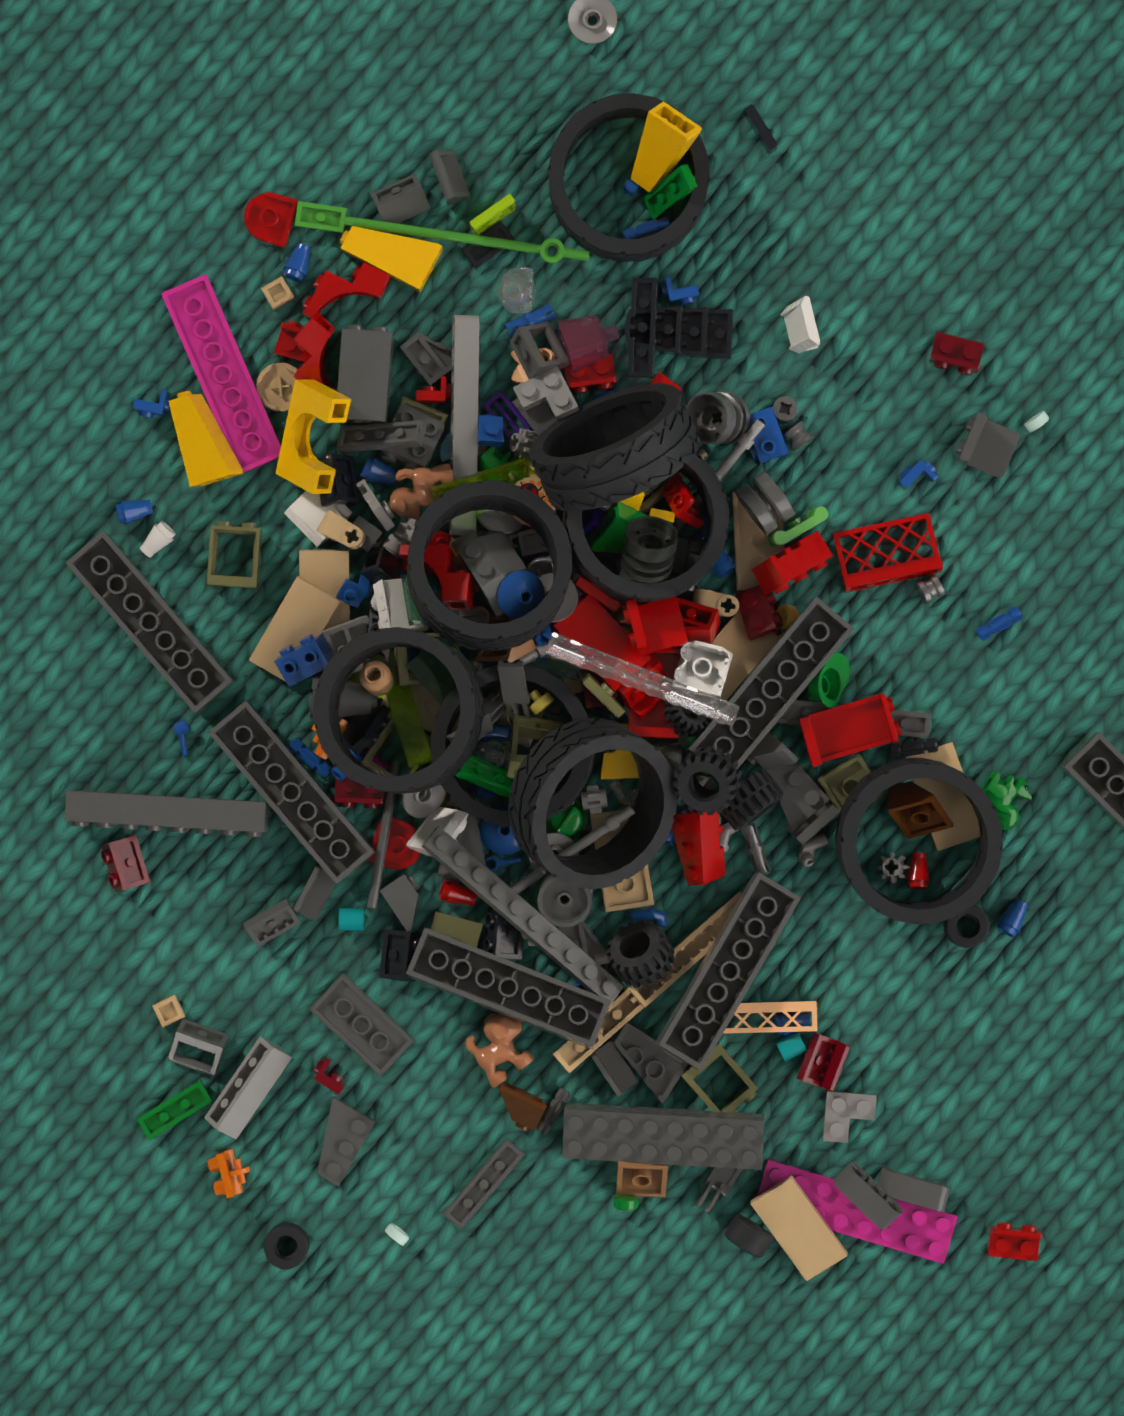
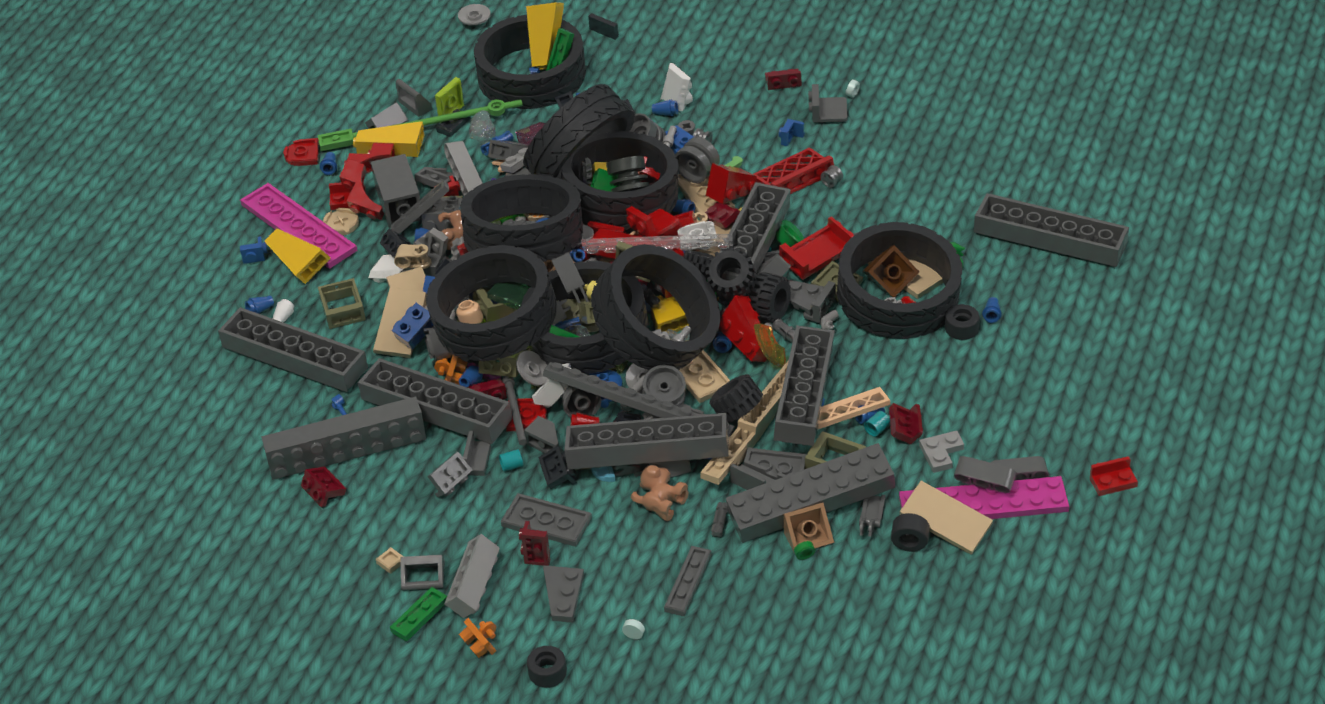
camera: 20 degrees left, 45 degrees down
(277, 293) = (320, 182): tan tile -> none
(296, 458) = (362, 200): yellow arch -> none
(522, 1106) = (691, 512): reddish brown slope -> none
(716, 883) = (769, 345): none -> clear yellow tile
(776, 348) = (666, 107): none -> blue cone
(999, 623) = (888, 180): blue axle -> none

